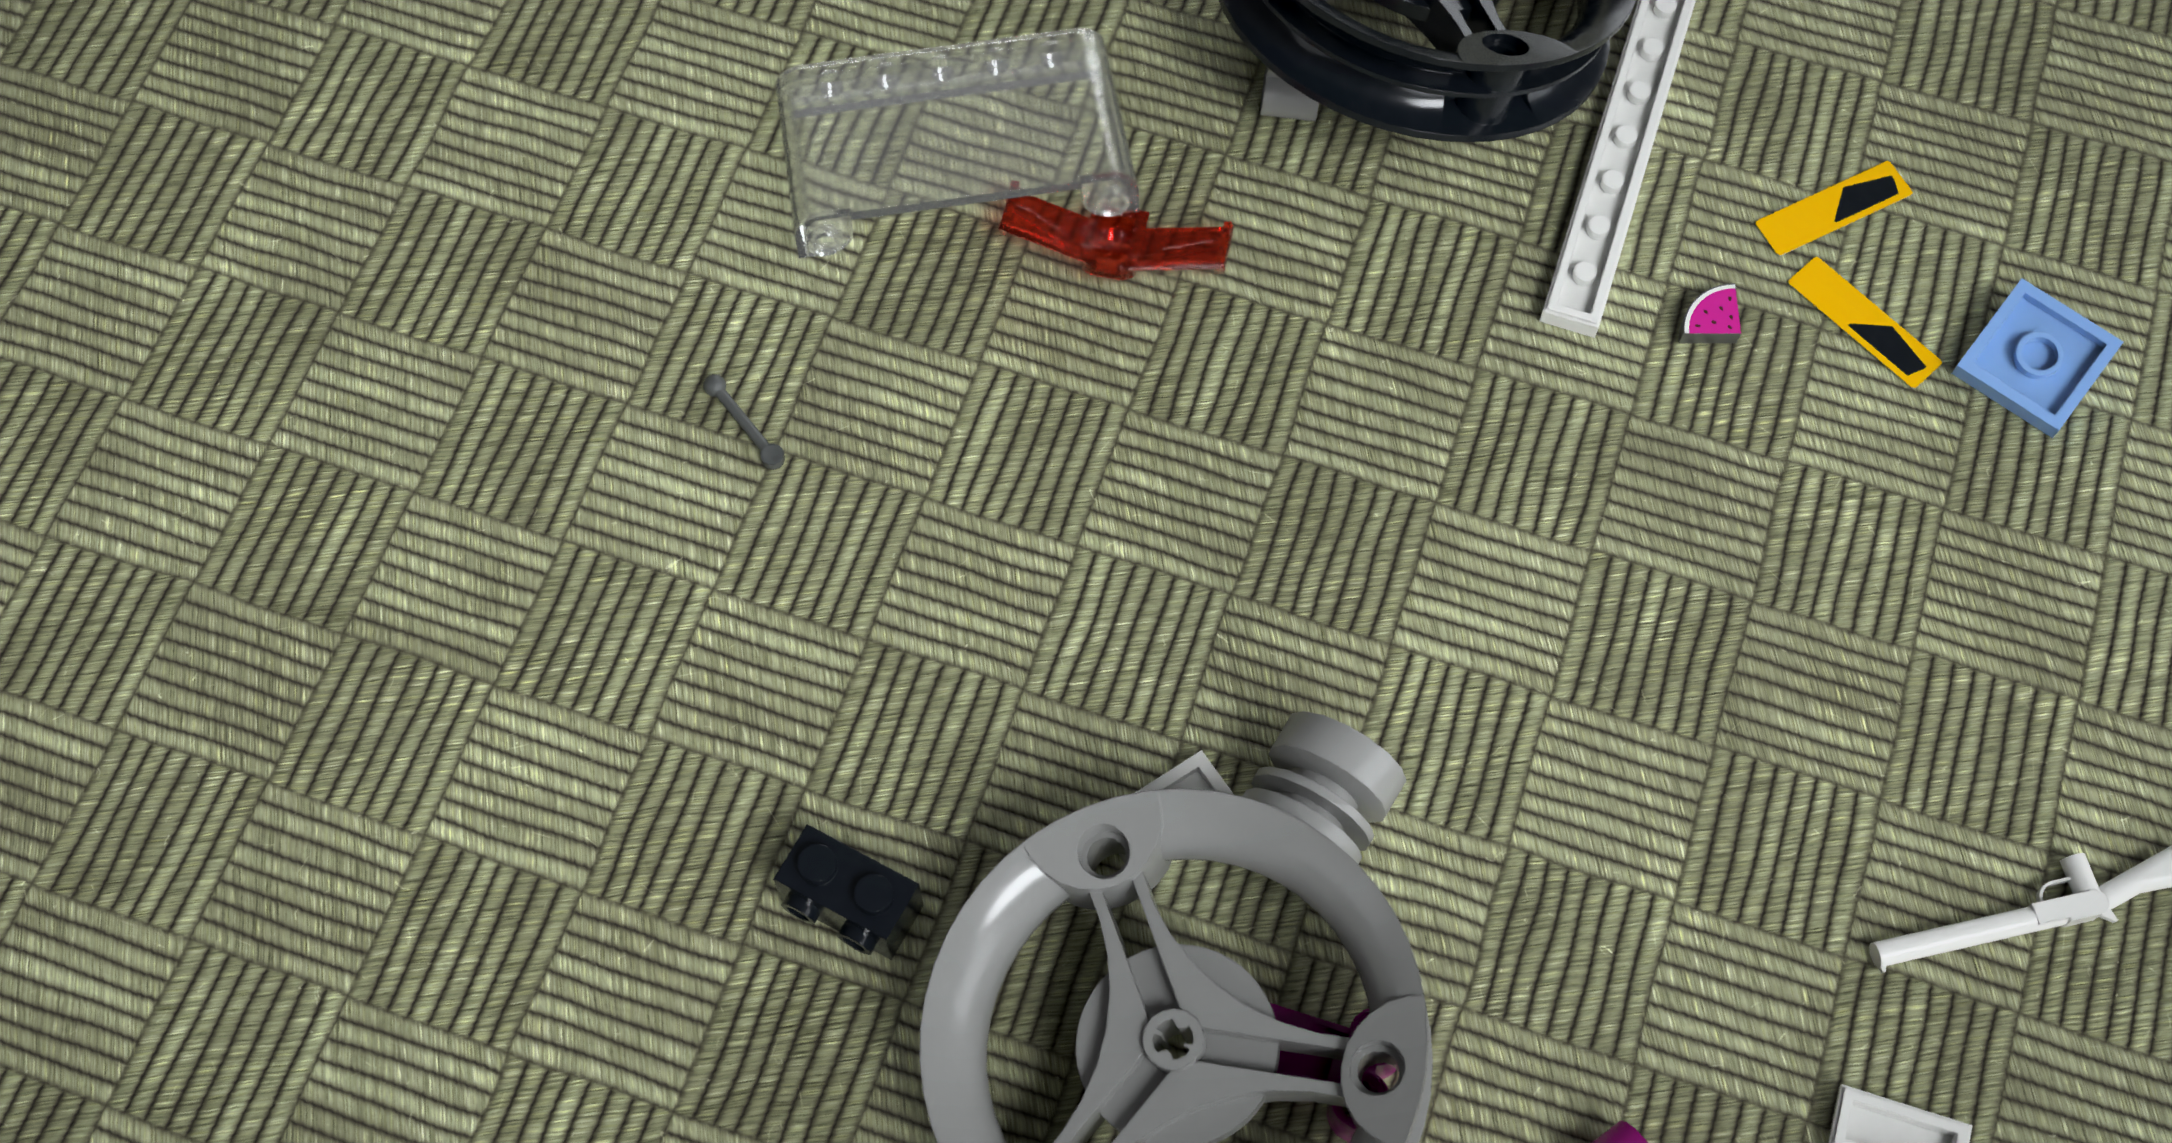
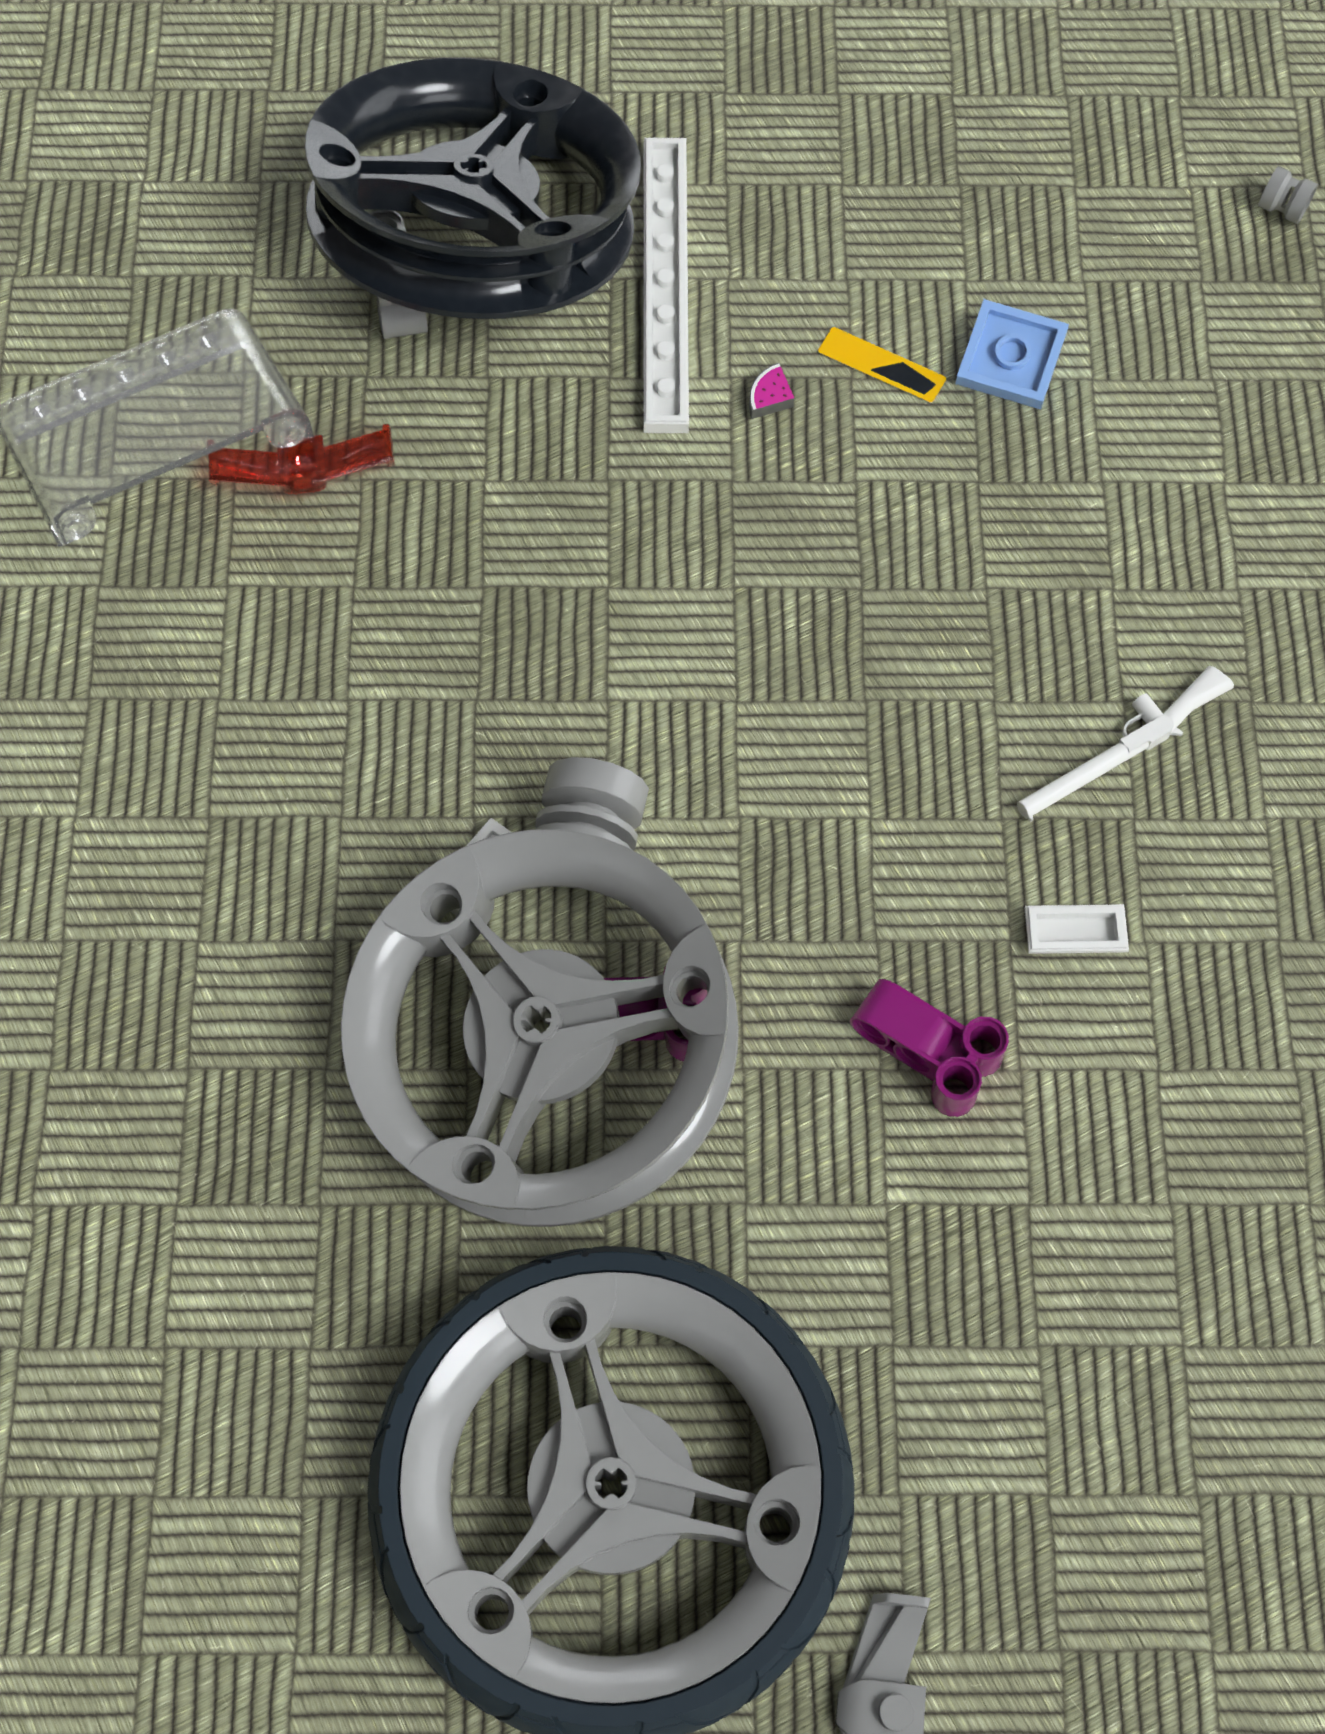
camera: 20 degrees left, 0 degrees up
(771, 454) = (87, 703): dark grey hinge -> none
(848, 892) = (258, 1002): black brick -> none
(1833, 208) = (834, 288): yellow sticker -> none

